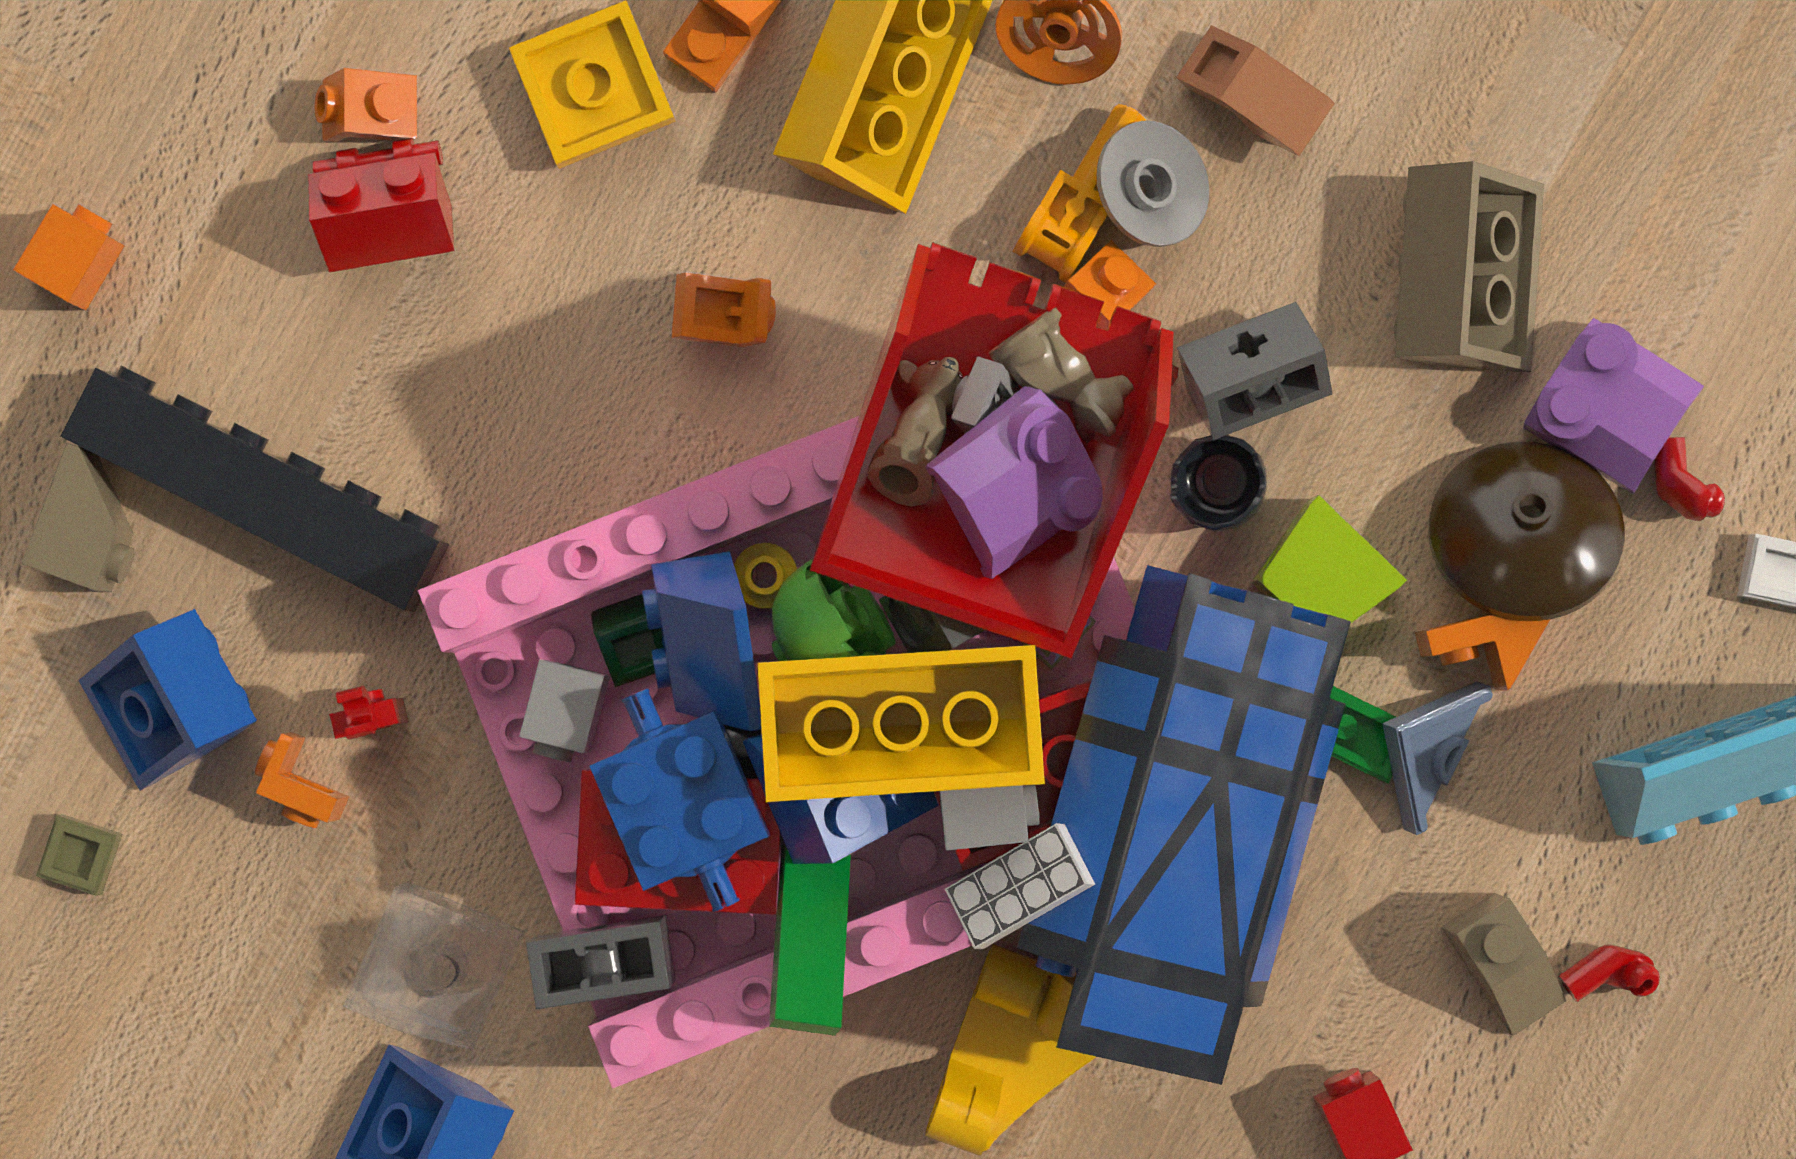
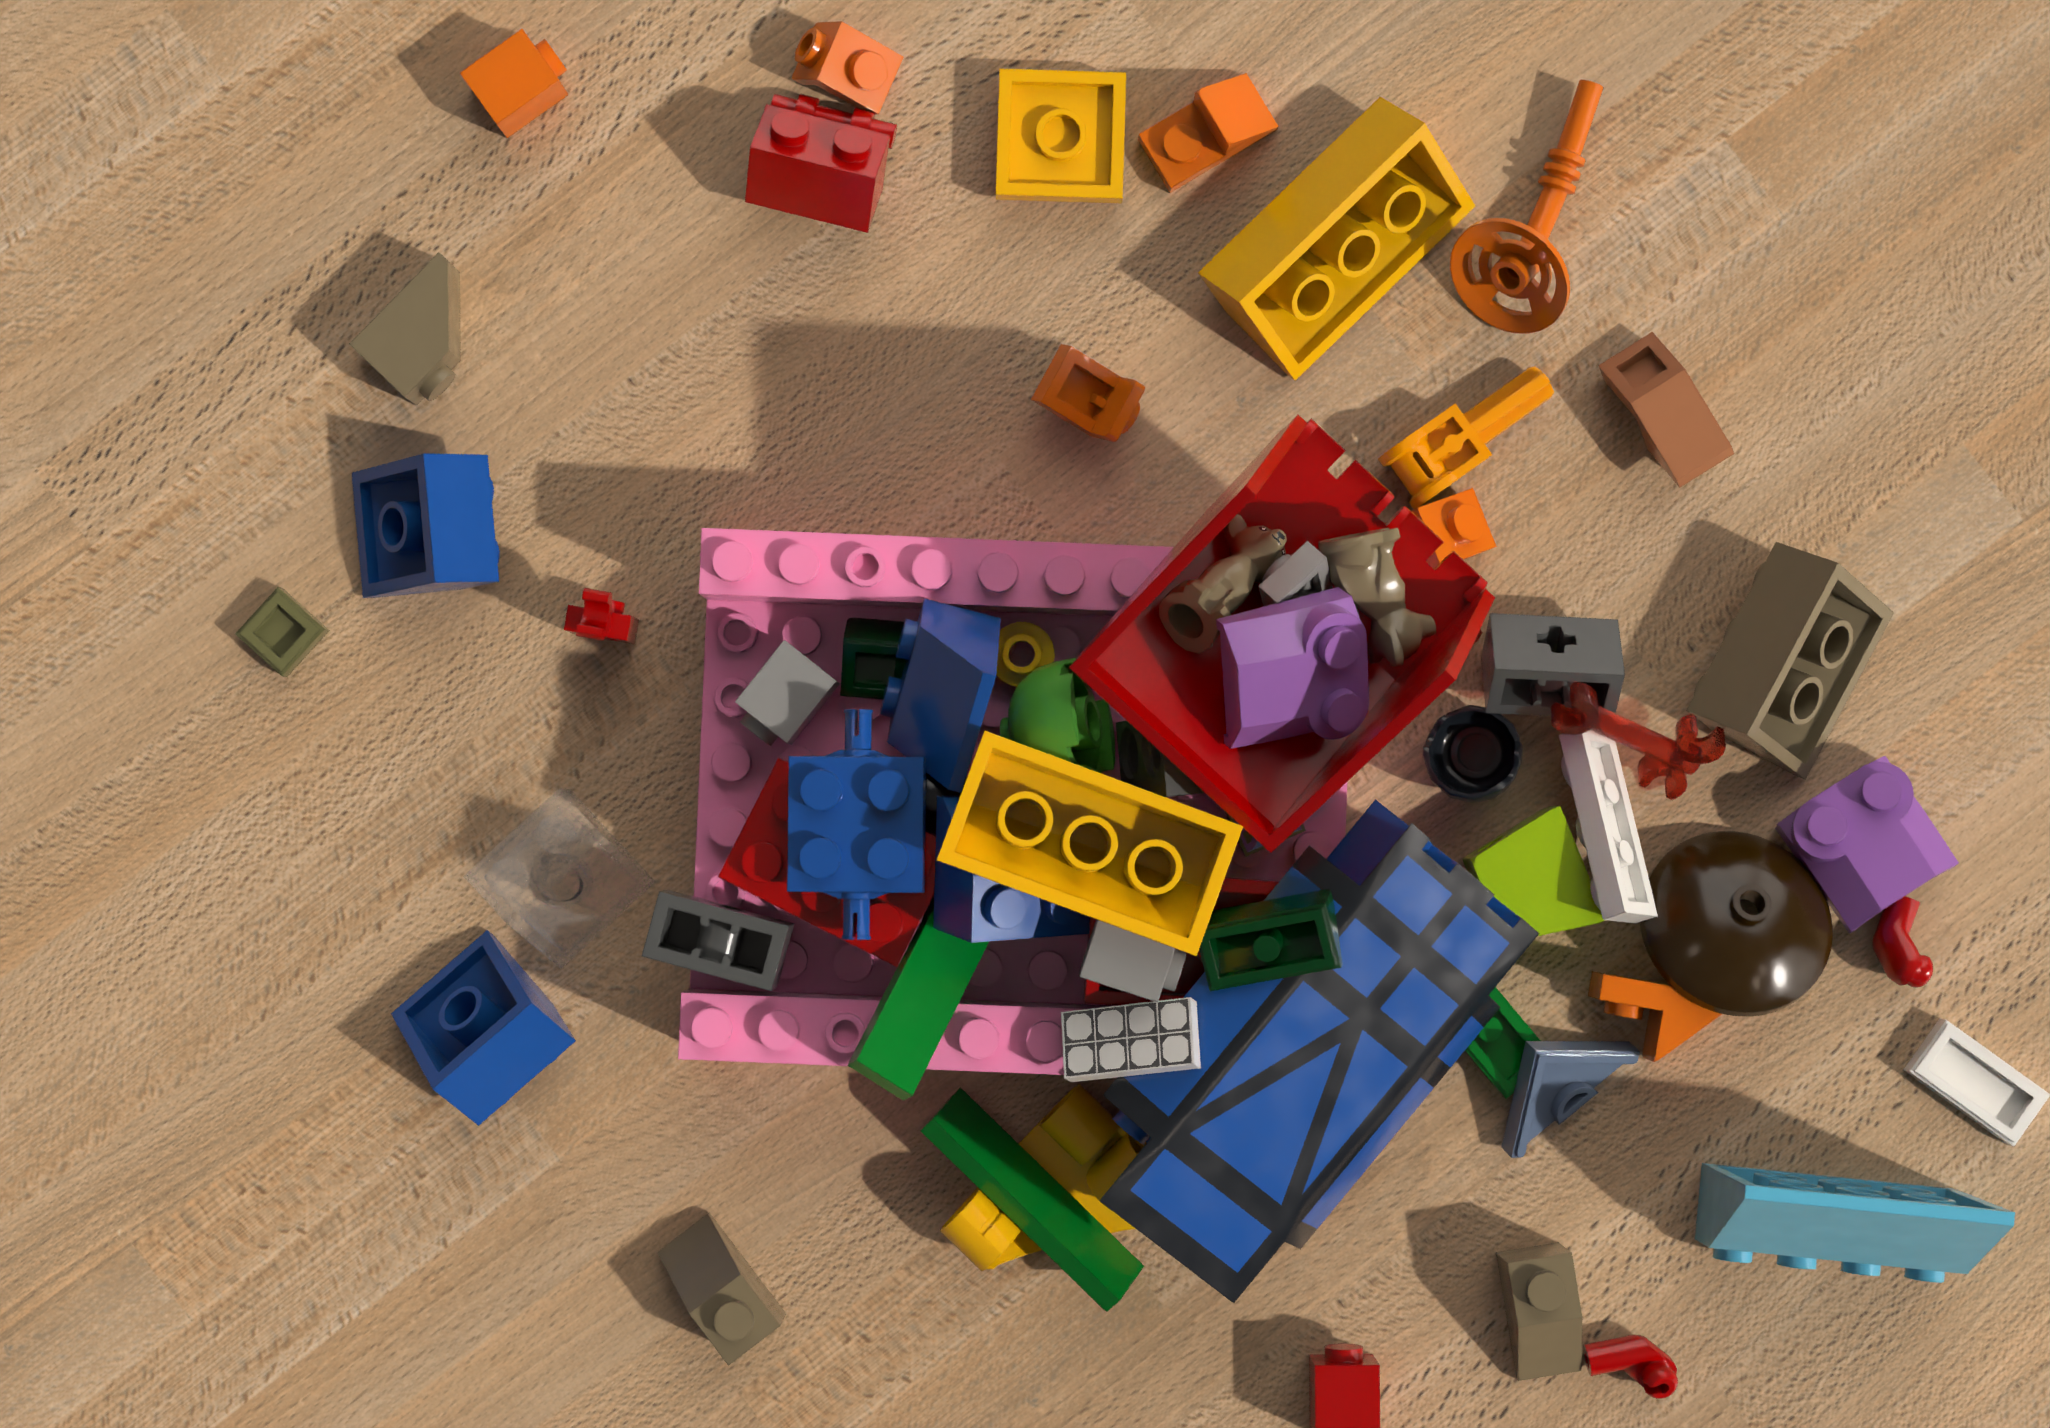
camera: 25 degrees right, 0 degrees up
(255, 489) = (590, 370): black brick -> none
(302, 798) = (508, 671): orange bracket -> none
(997, 1068) = (1033, 1199): none -> green tile
(1107, 738) = (1271, 940): none -> dark green slope
(1172, 179) = (1553, 449): light grey dish -> none
(1369, 494) = (1607, 828): none -> white plate
(1390, 406) = (1661, 754): none -> clear red bar

